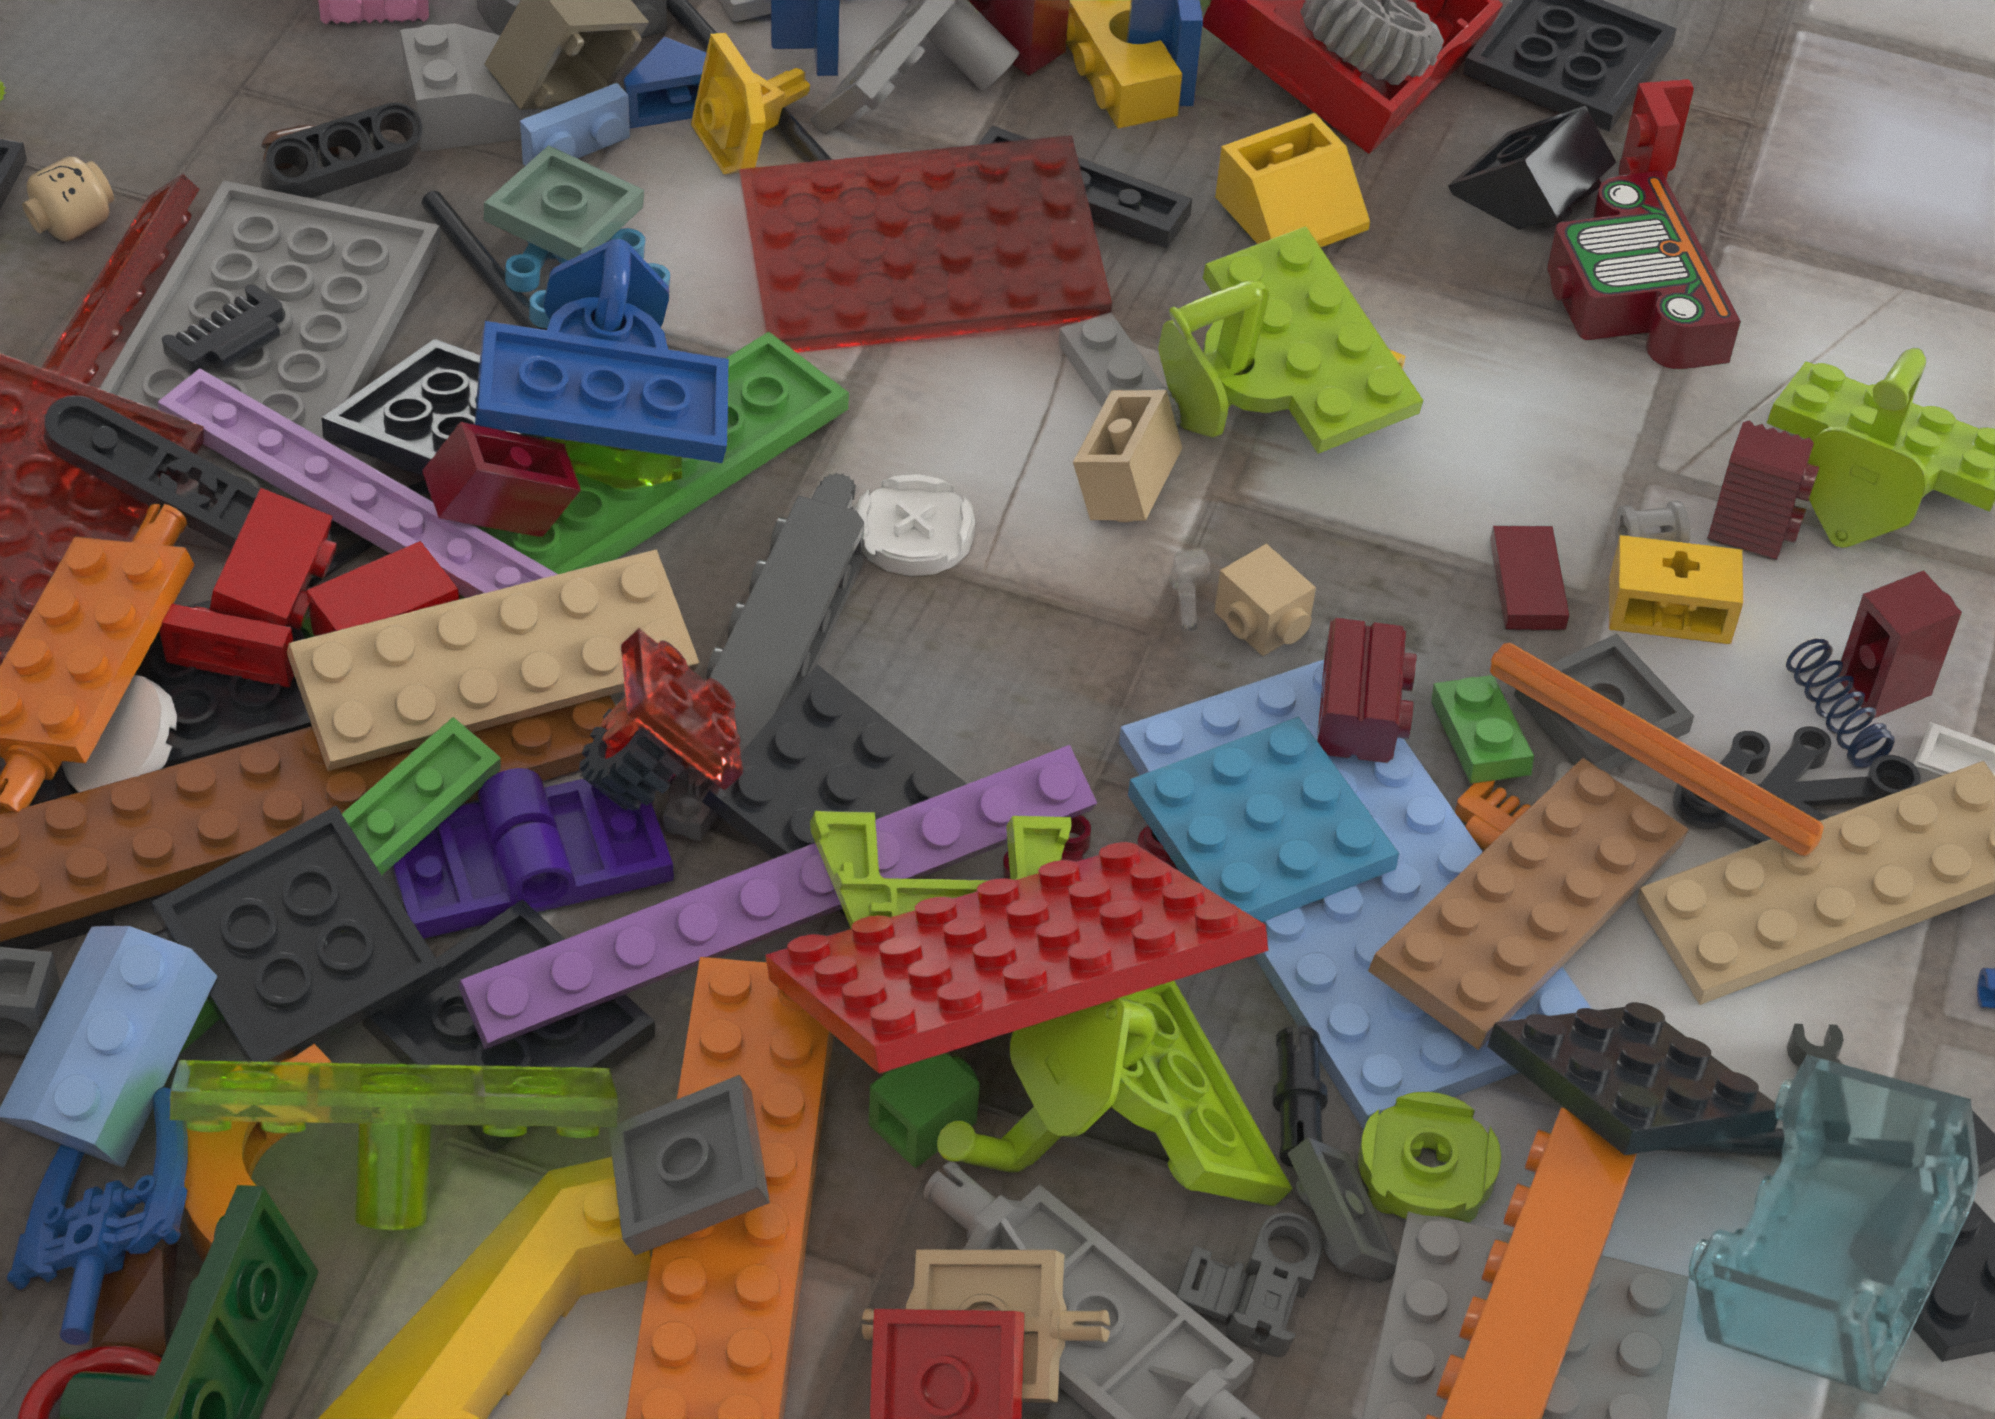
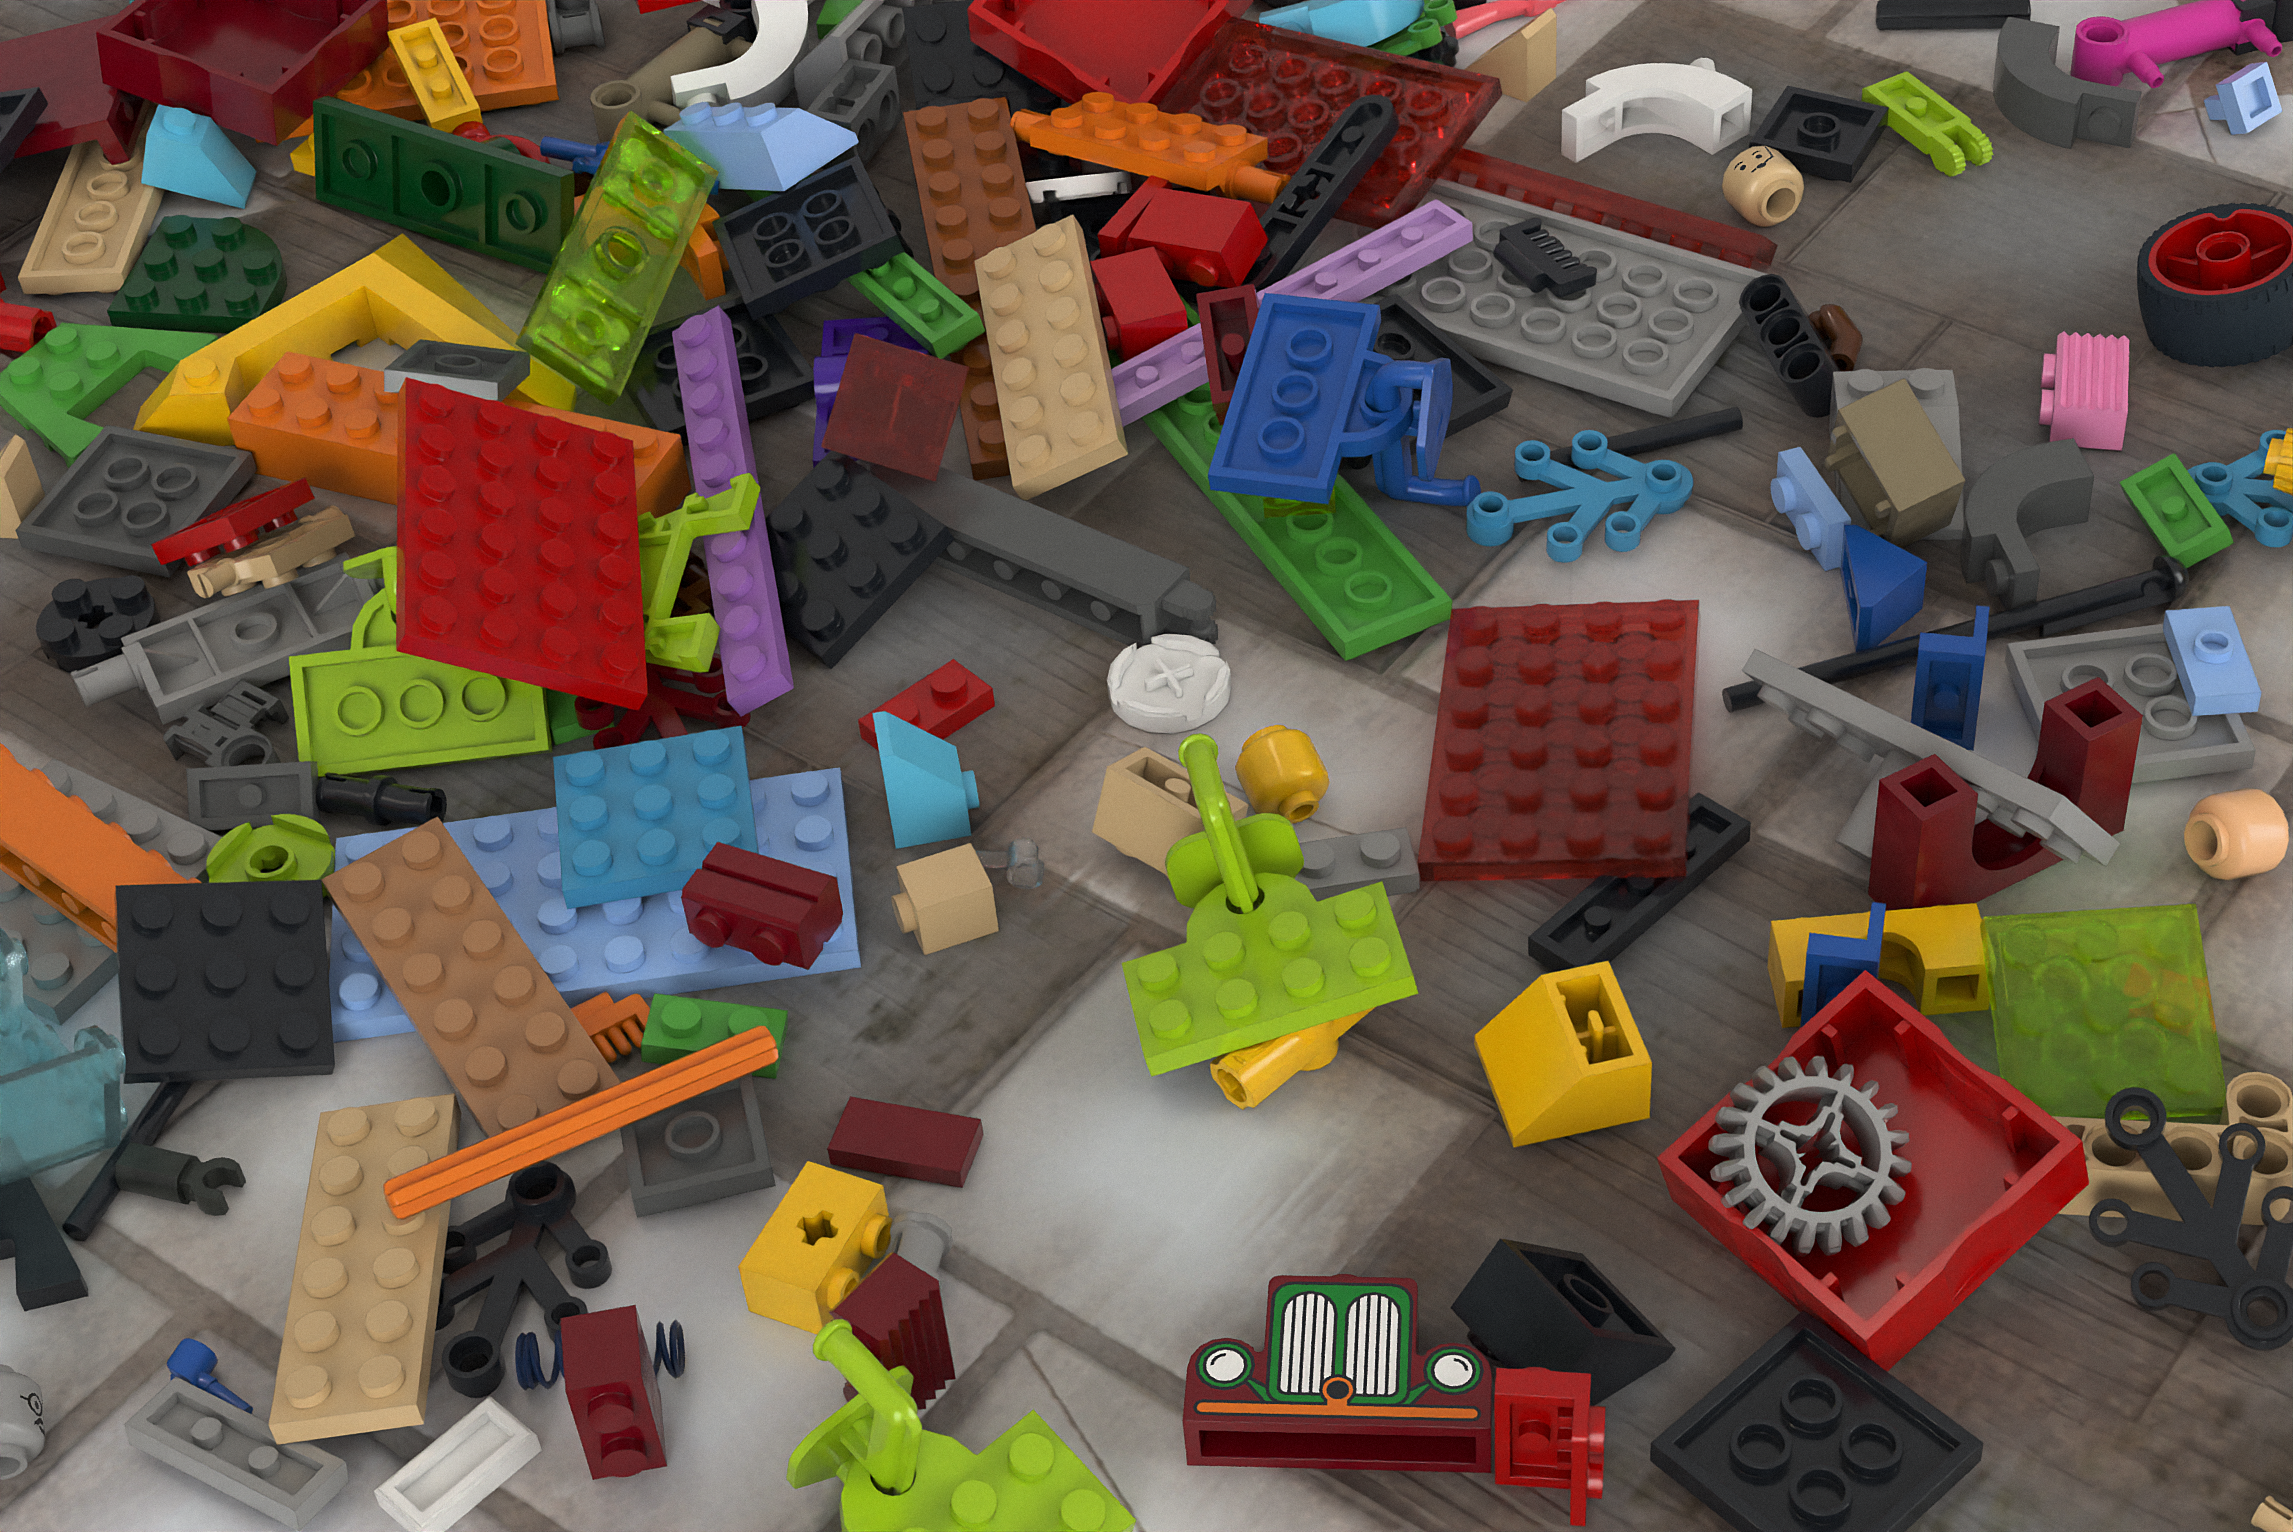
camera: 115 degrees right, 5 degrees down
(563, 204) = (1655, 462): sand green plate -> none
(739, 105) = (1798, 602): yellow piece -> none
(1011, 692) = (936, 703): none -> red plate
(1030, 407) = (1282, 773): none -> yellow head
(1149, 640) = (923, 783): none -> medium azure slope

